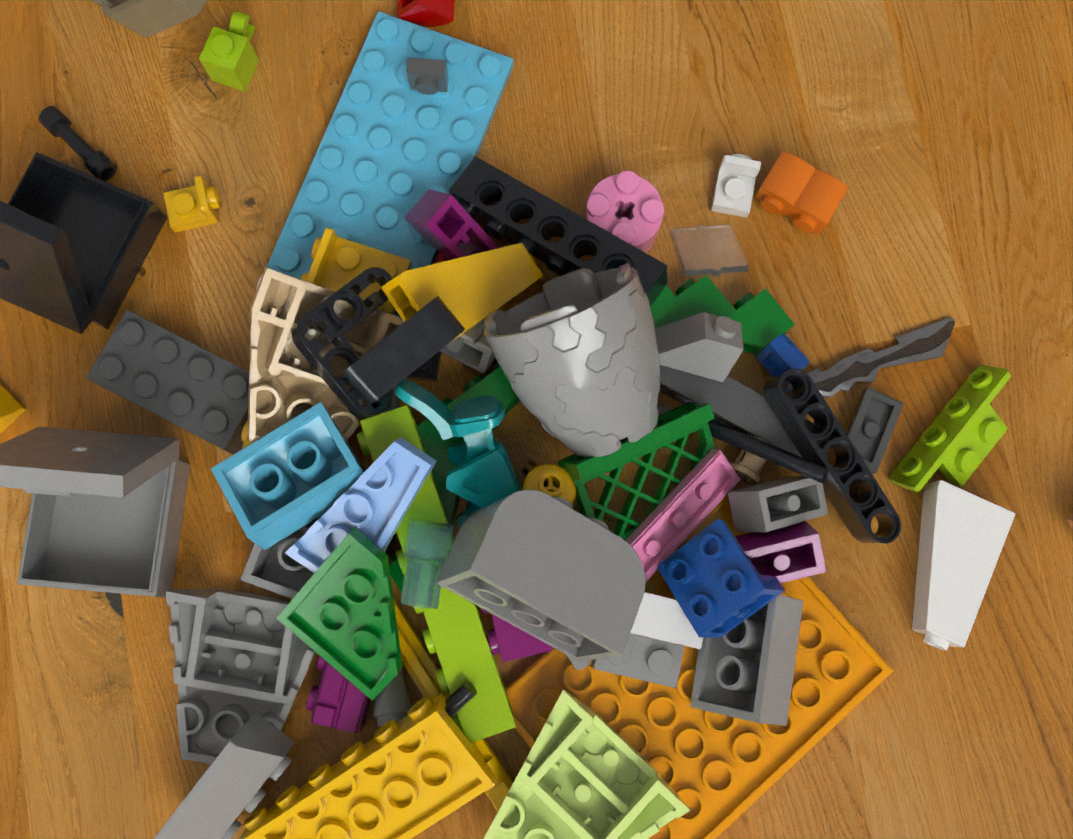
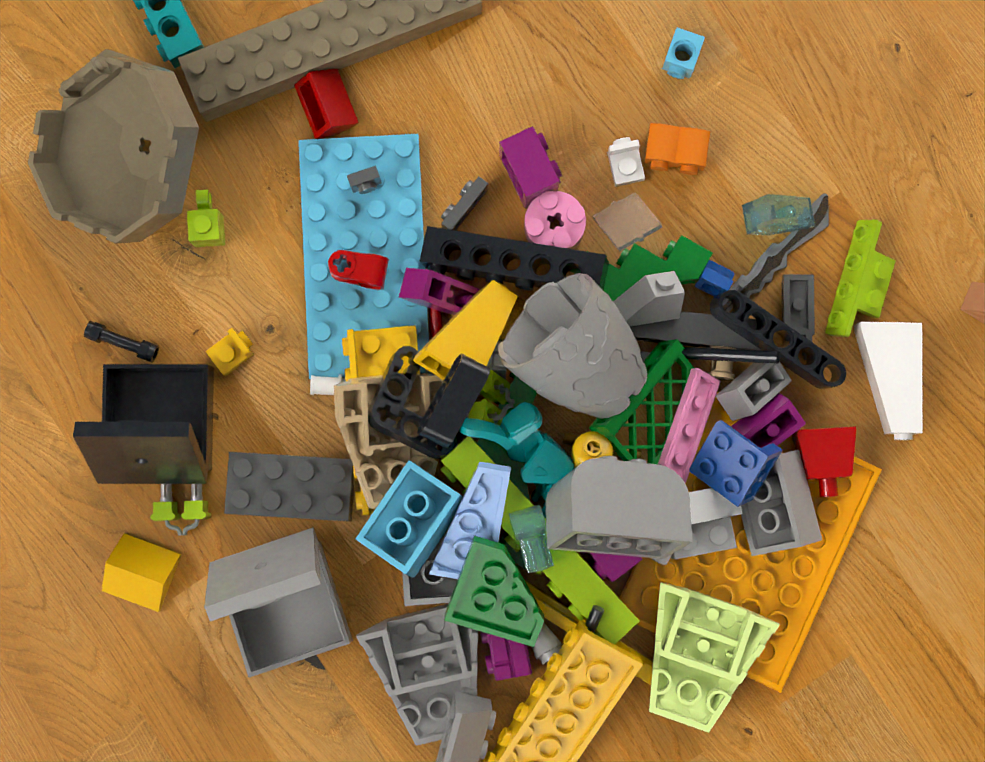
camera: 20 degrees left, 5 degrees up
(58, 361) = (167, 510): none -> lime piece
(378, 172) = (365, 269): none -> red piece
(466, 369) = (495, 390): none -> lime piece
(539, 151) = (471, 195): none -> dark grey plate
(623, 132) = (529, 165): none -> magenta brick
(834, 623) = (826, 455): none -> red torso
(861, 84) = (687, 42): none -> medium azure brick
(888, 315) = (777, 214): none -> clear light blue slope

